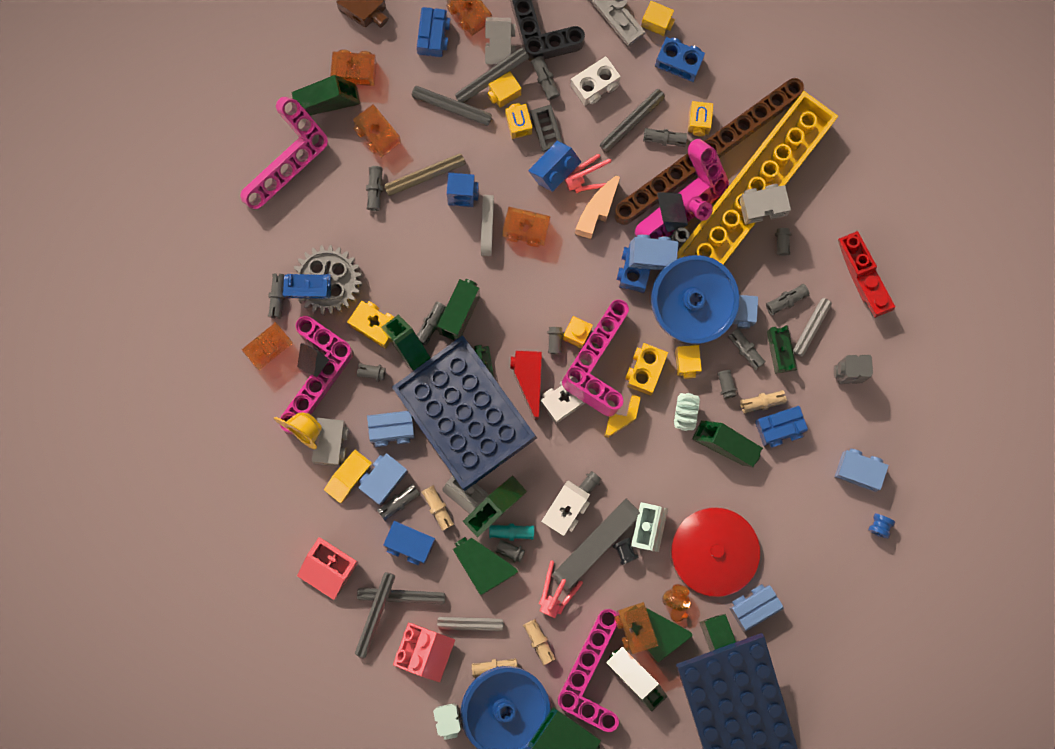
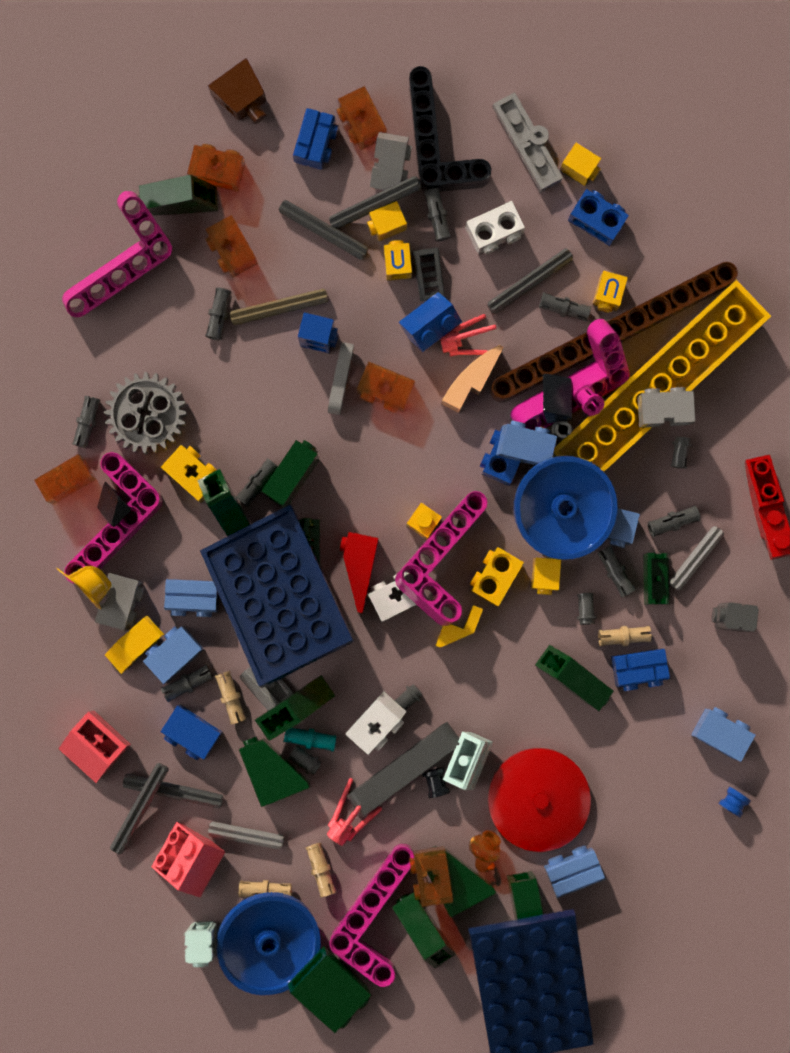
camera: 10 degrees right, 5 degrees up
(307, 286) = (120, 418): blue hinge -> none
(373, 372) = (180, 528): dark grey pin -> none
(555, 340) = (396, 525): dark grey pin -> none
(686, 411) = (533, 634): light aqua gear -> none

